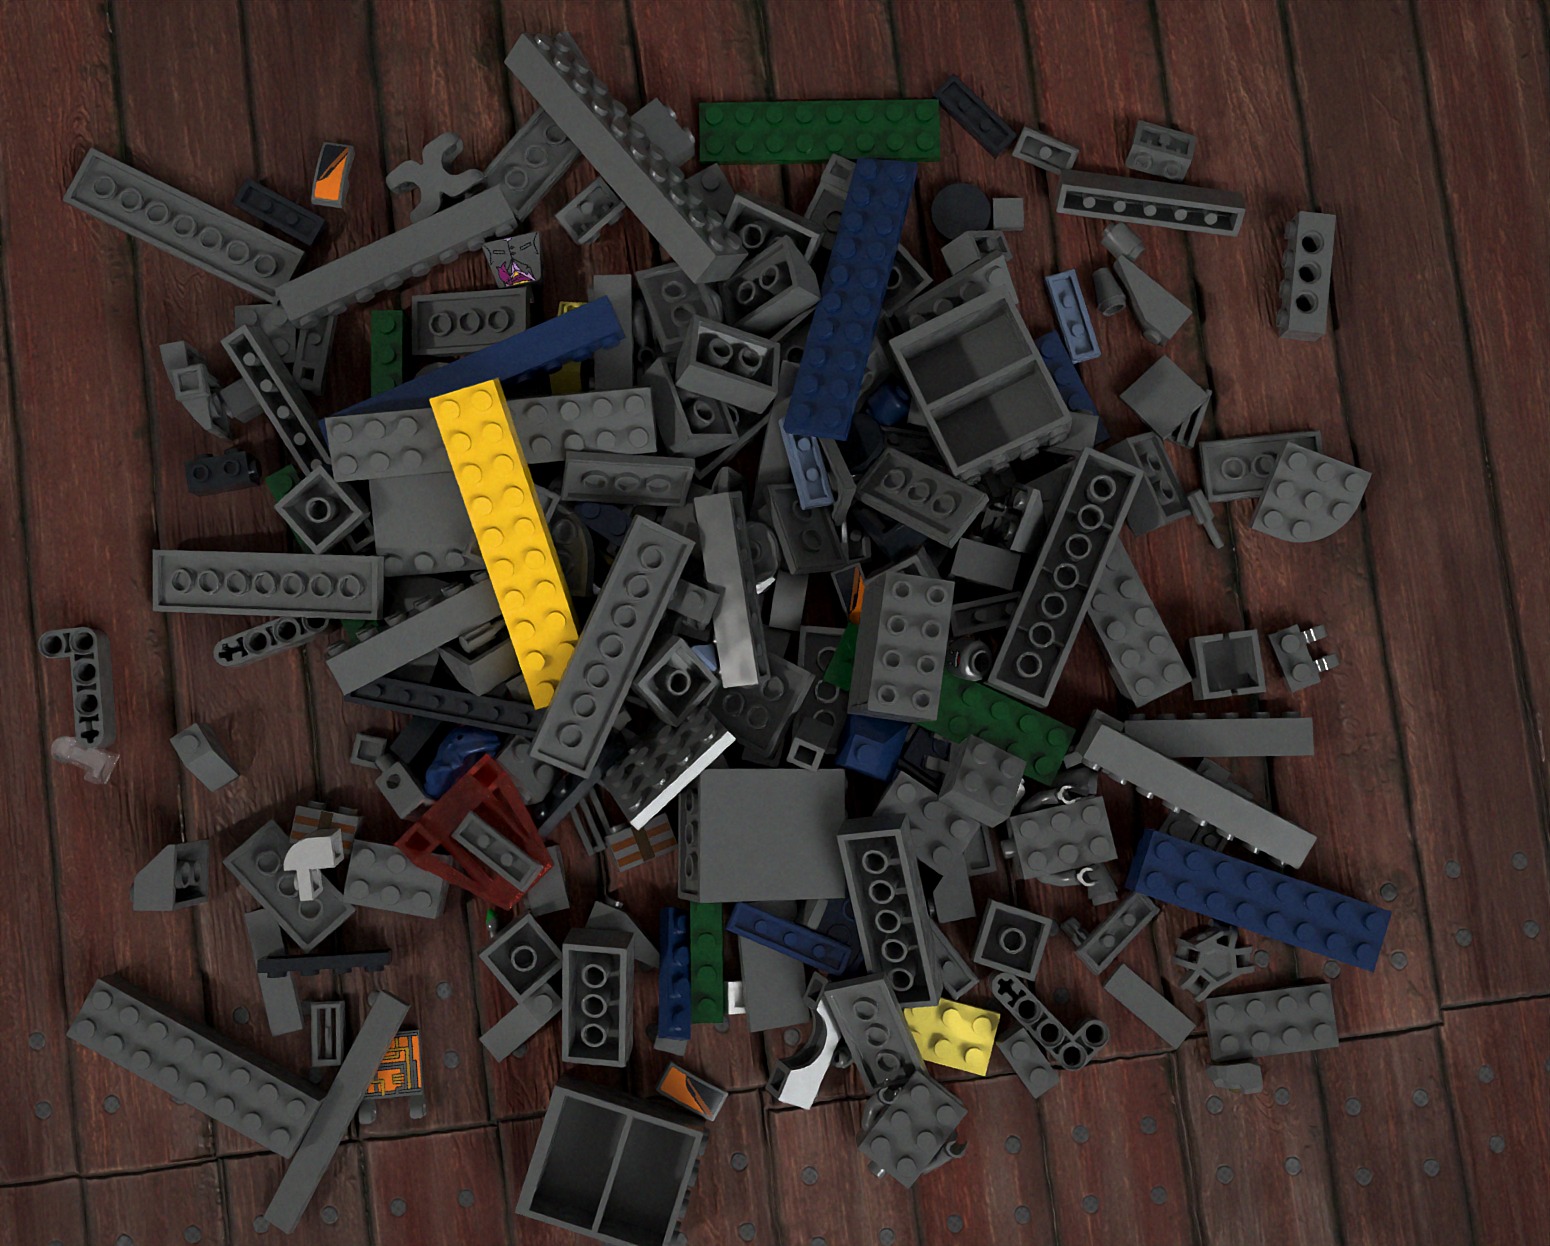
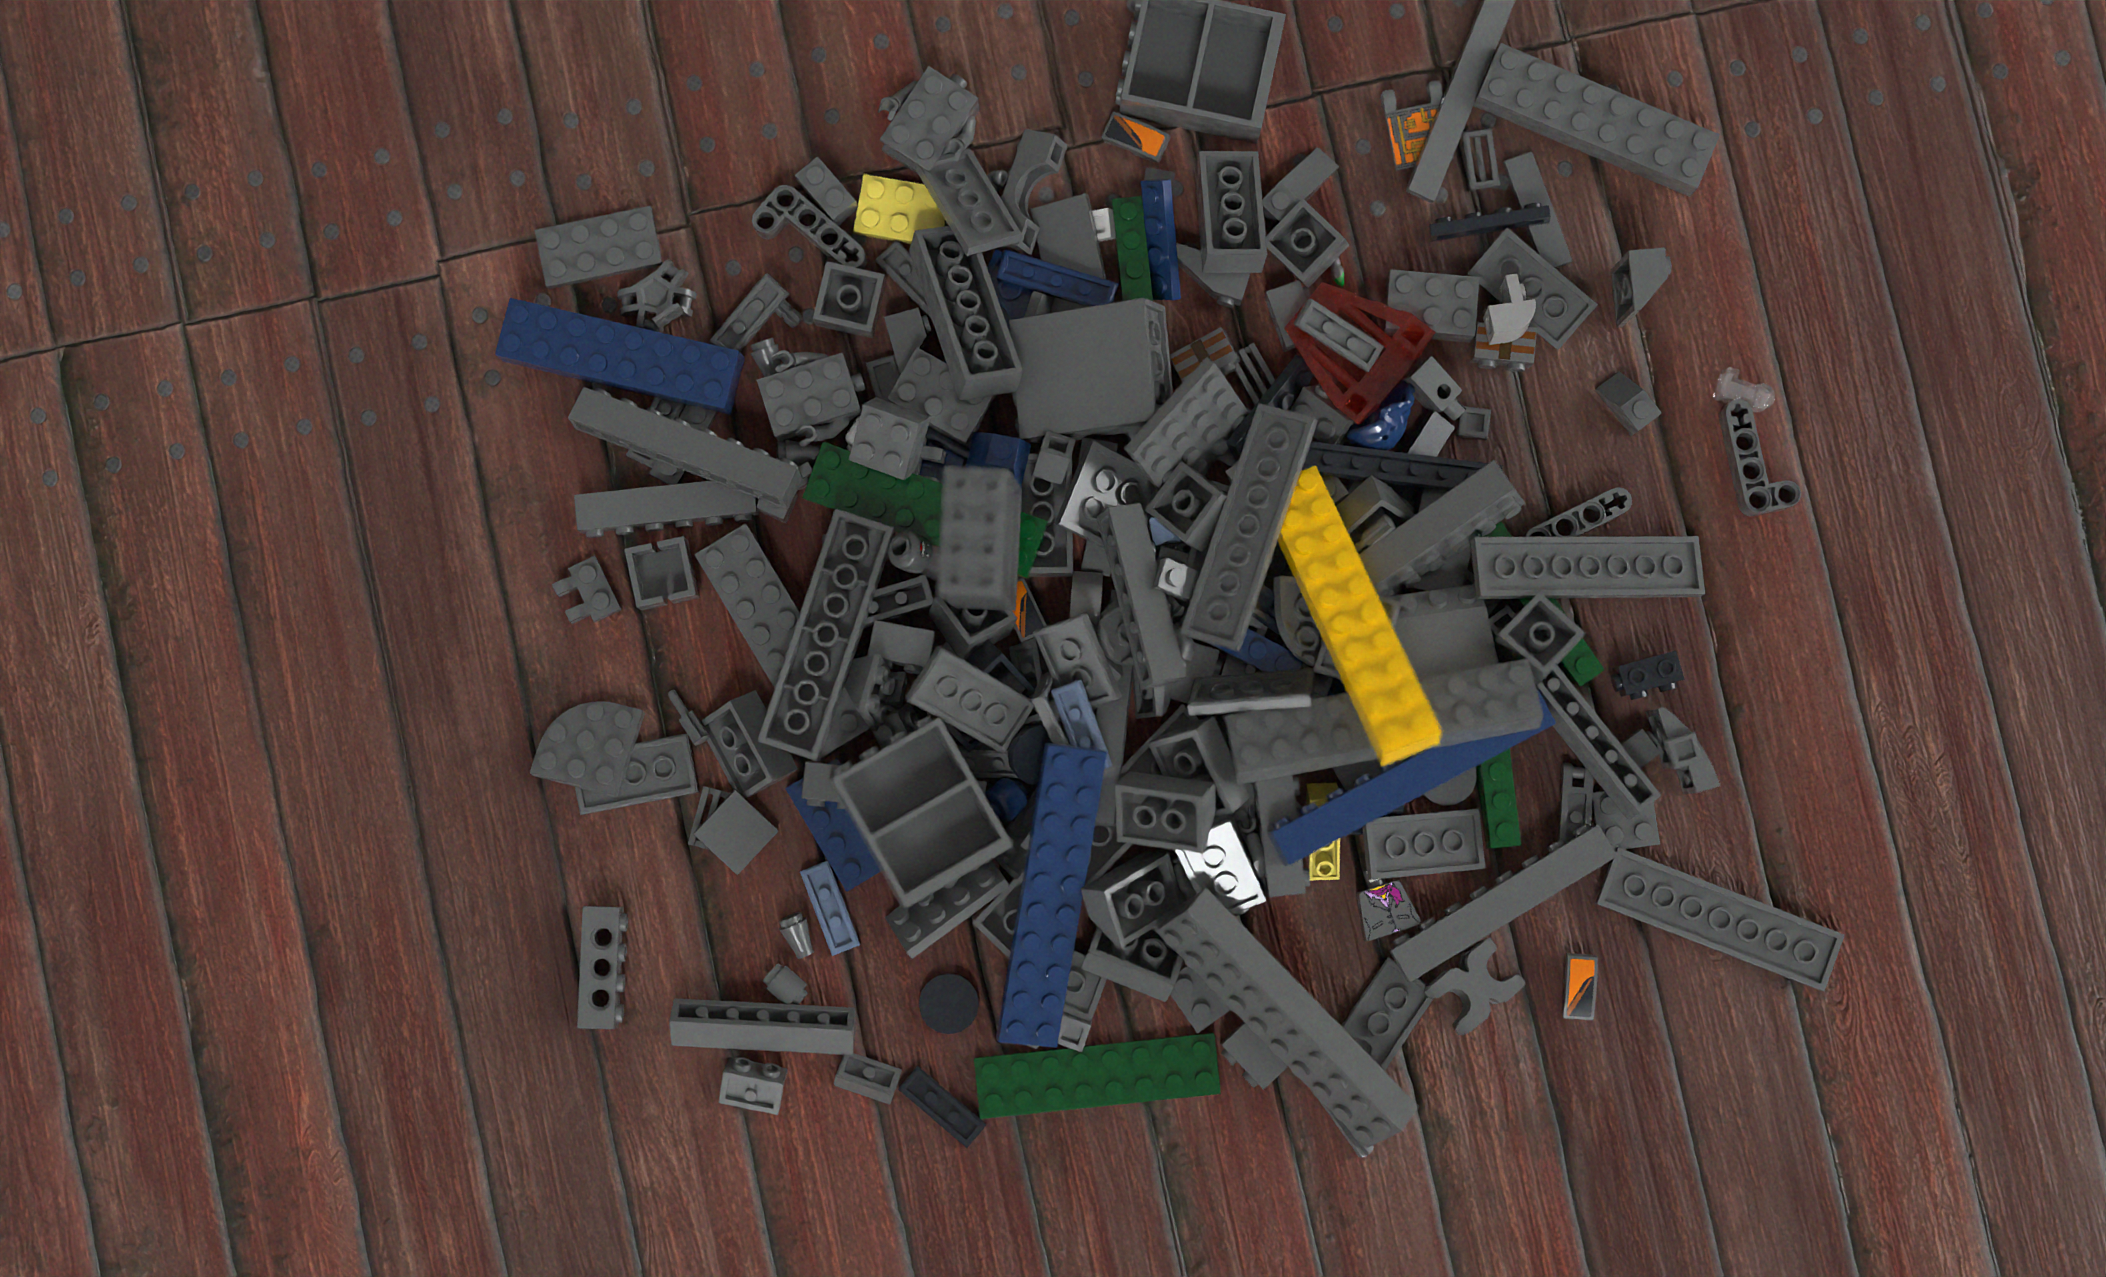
camera: 175 degrees right, 0 degrees up
(280, 213) = (1627, 942): black plate -> none
(590, 212) = (1320, 966): dark grey bracket -> none
(972, 247) = (930, 963): dark grey slope -> none
(1007, 214) = (901, 1007): dark grey tile -> none
(1148, 1005) = (714, 251): dark grey tile -> none
(1151, 305) = (751, 921): dark grey slope -> none
(1236, 1075) = (630, 195): dark grey rock -> none

